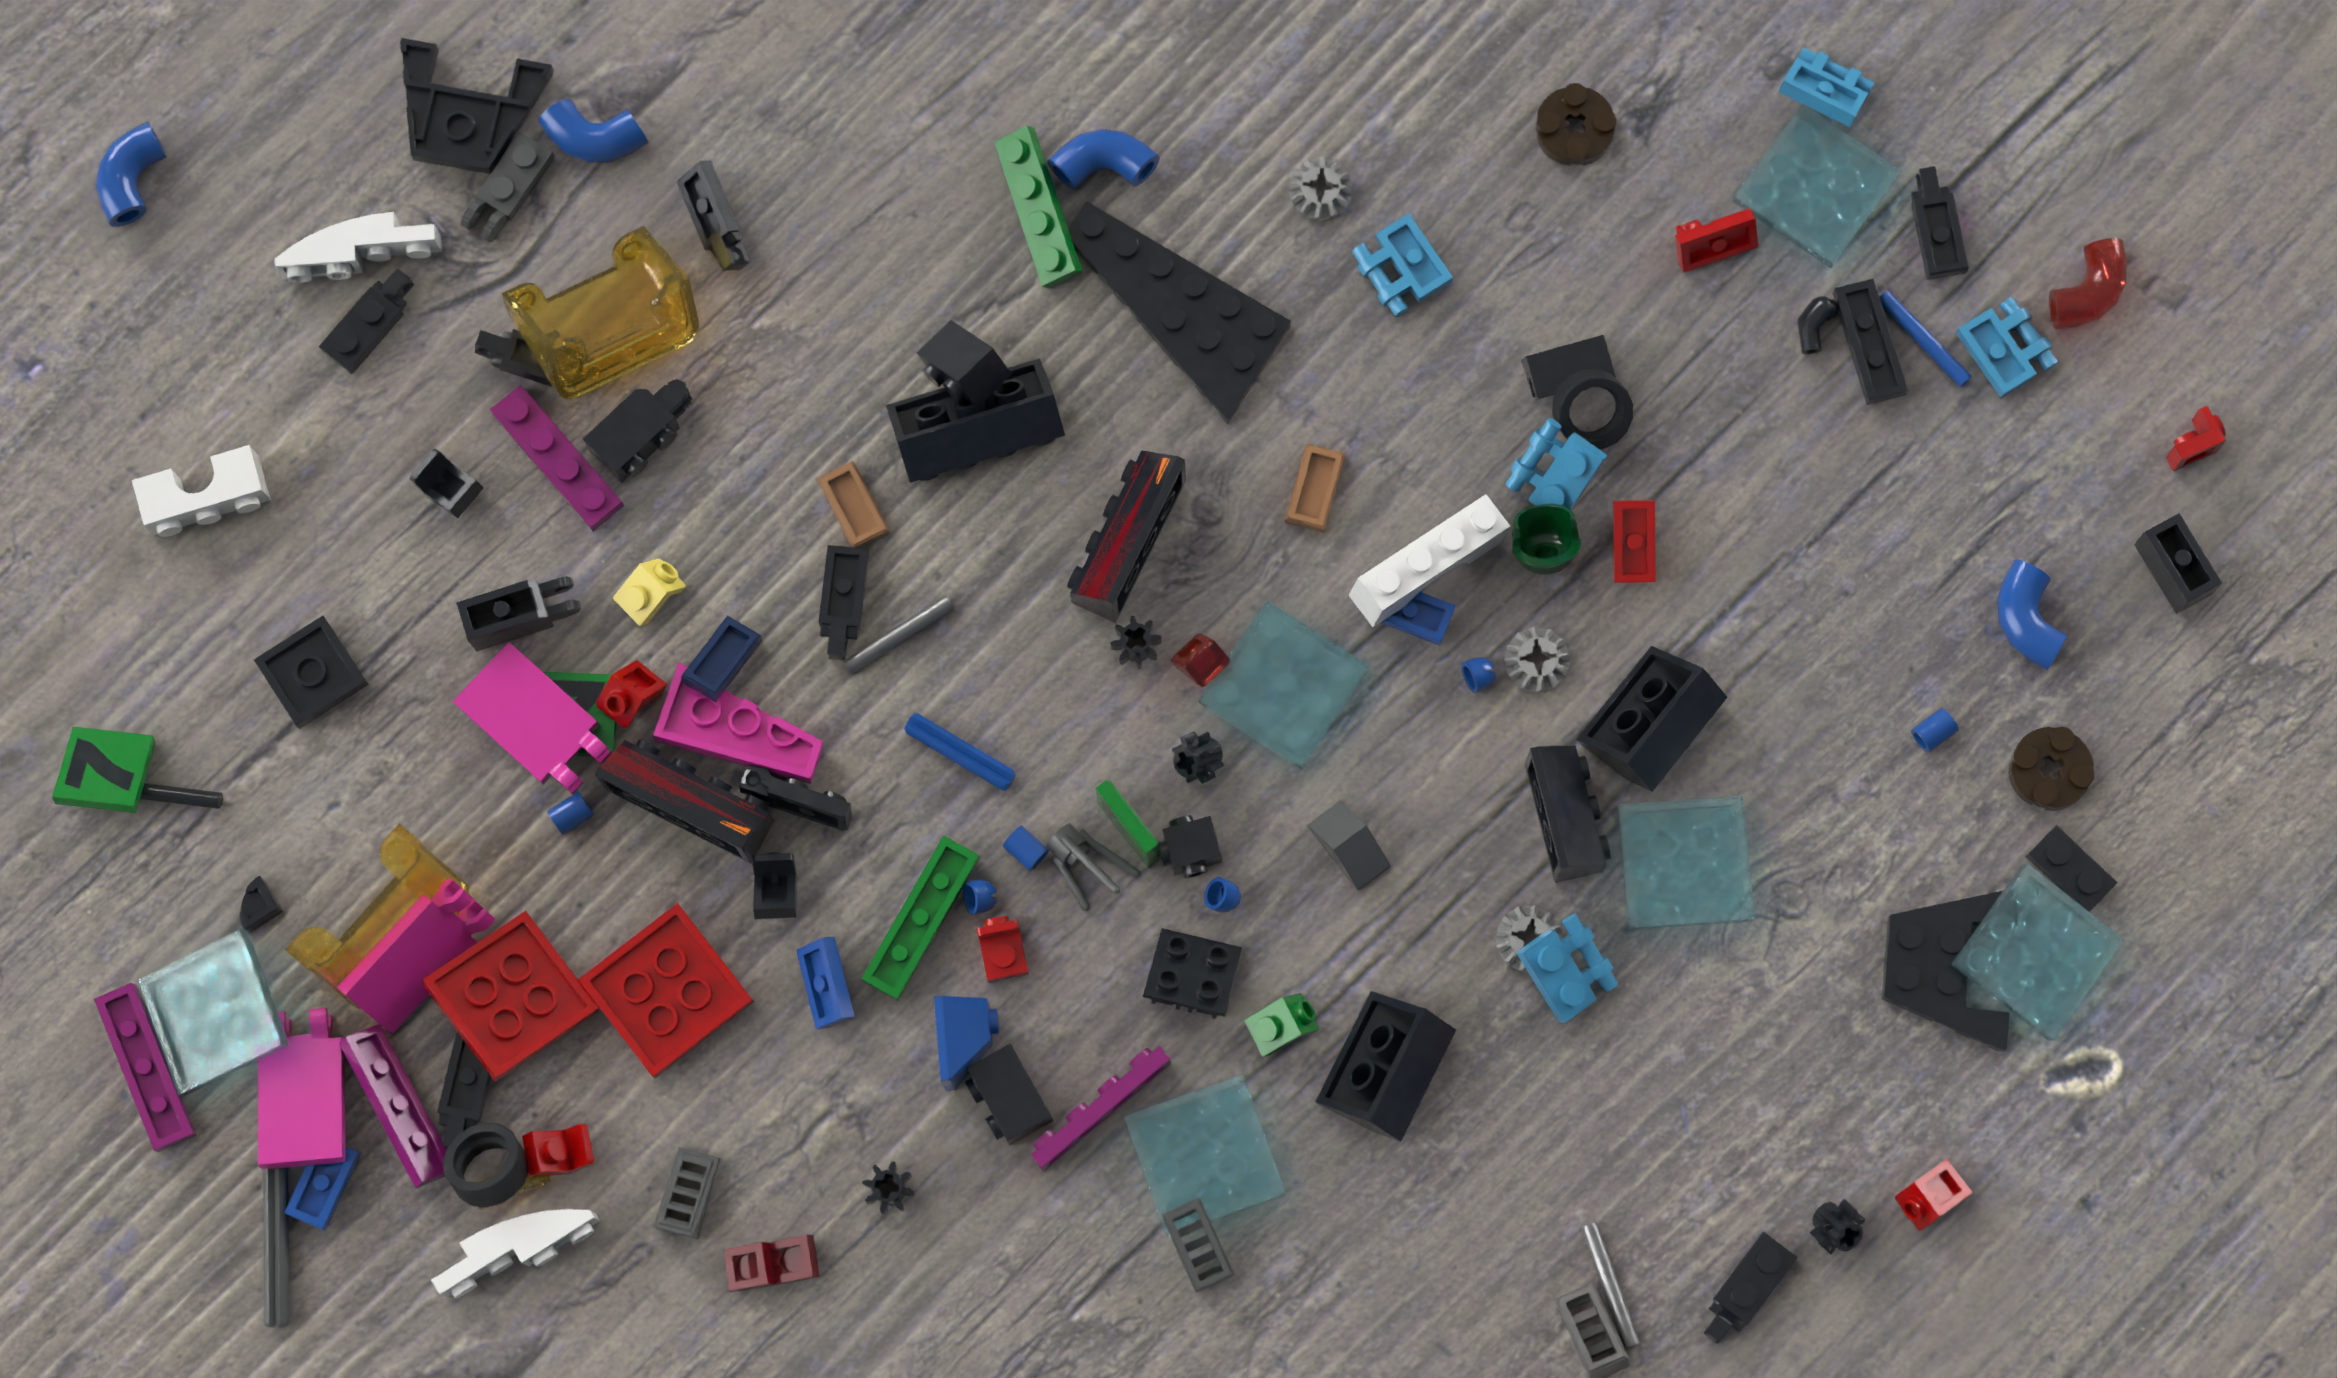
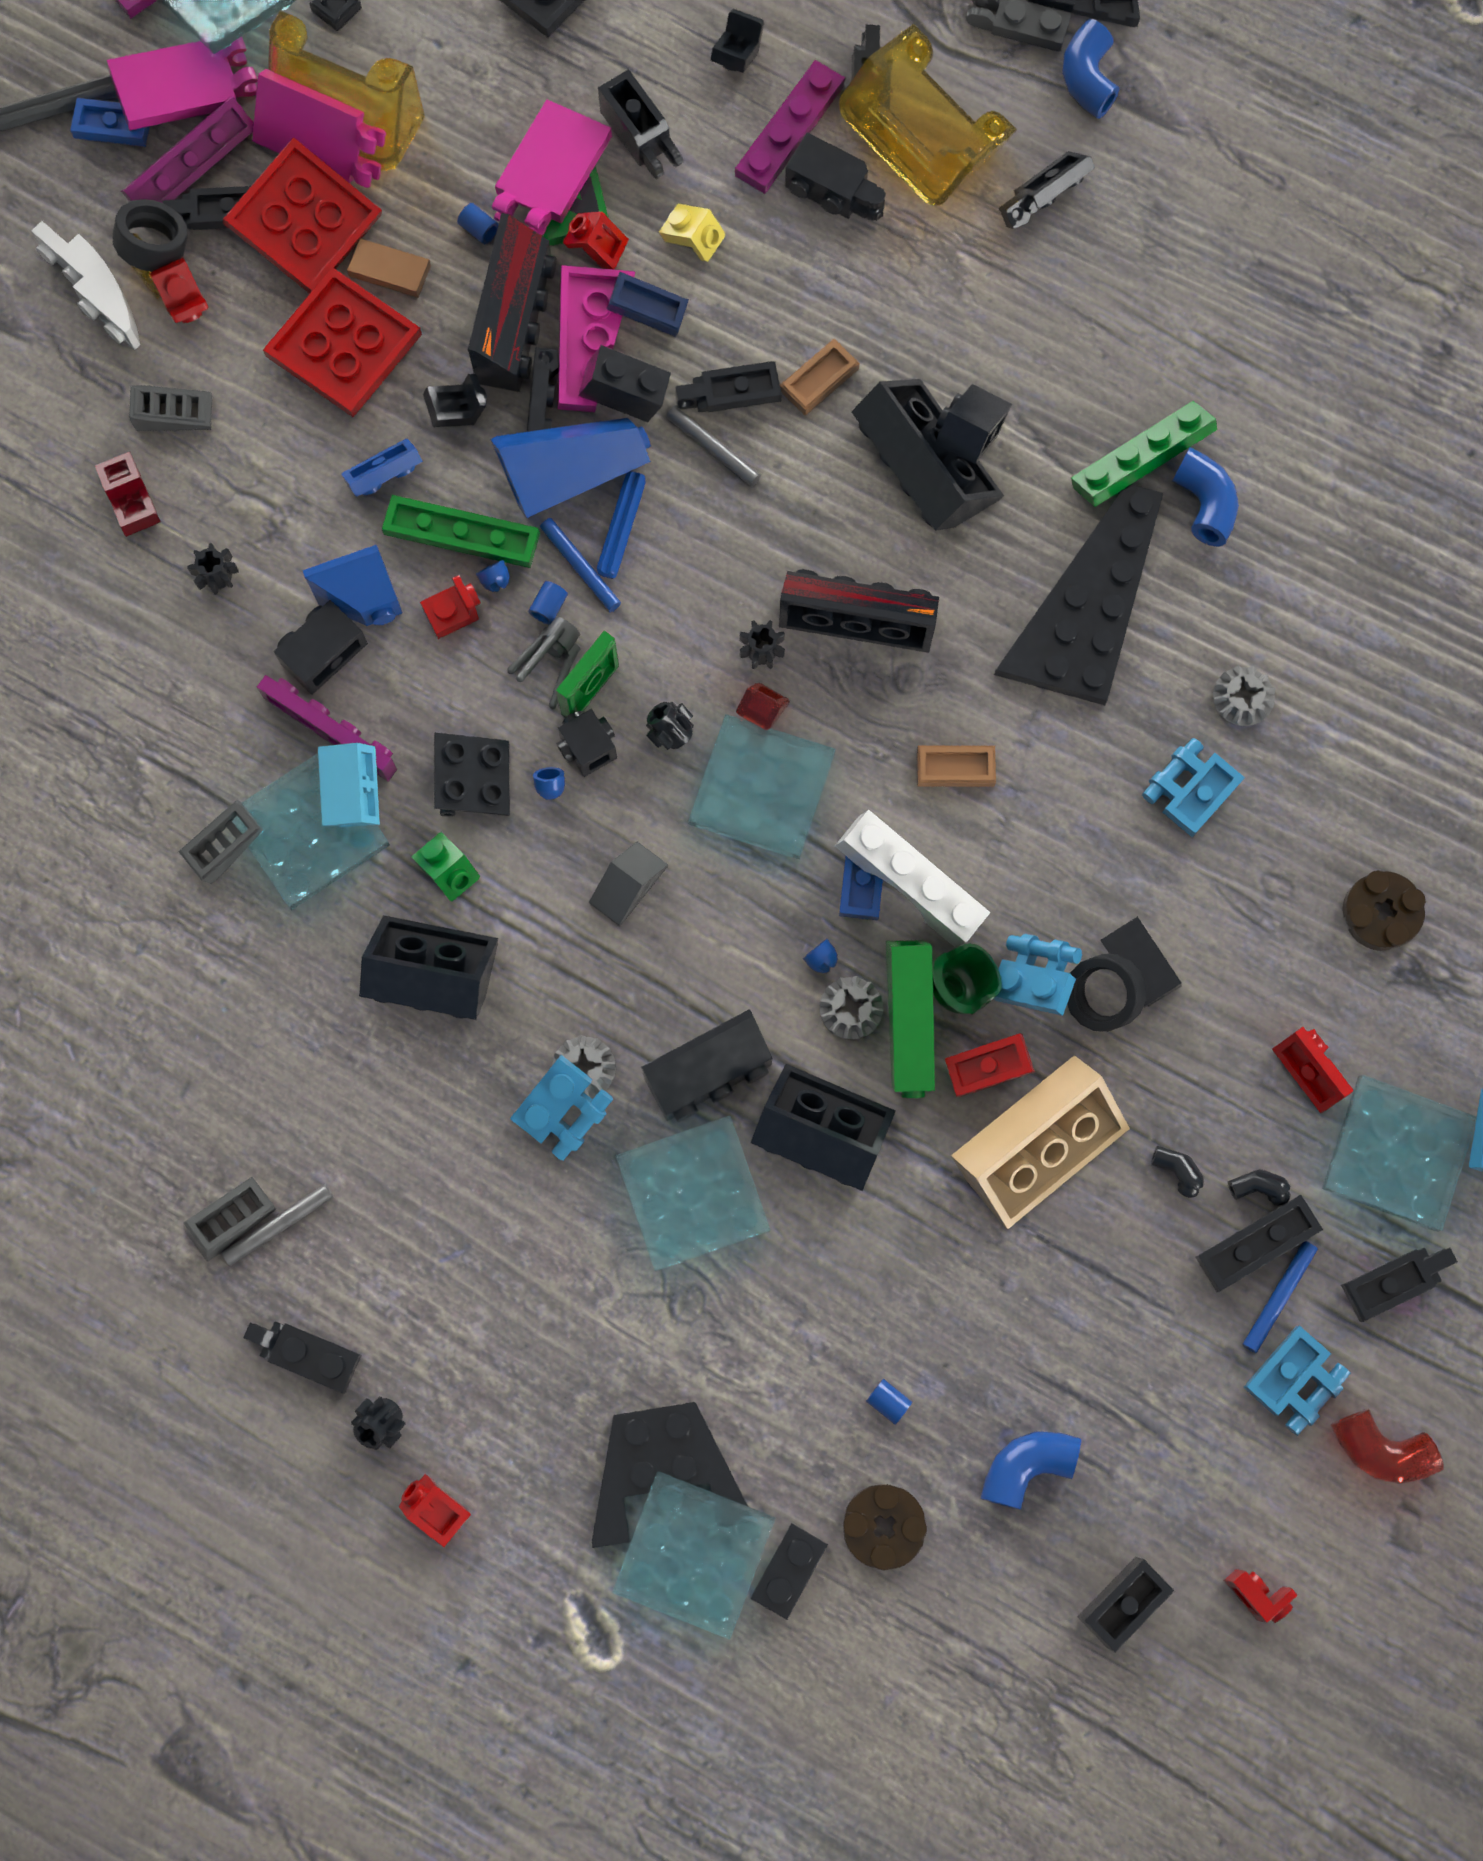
camera: 70 degrees right, 0 degrees up
(591, 921) = (389, 267): none -> medium nougat tile
(812, 703) = (624, 383): none -> black brick
(881, 783) = (568, 460): none -> blue slope
(991, 805) = (580, 565): none -> blue bar
(1180, 1094) = (348, 785): none -> medium azure hinge
(1562, 601) = (911, 1016): none -> green slope
(1719, 514) = (1041, 1141): none -> tan slope
(1777, 389) = (1184, 1168): none -> black arm

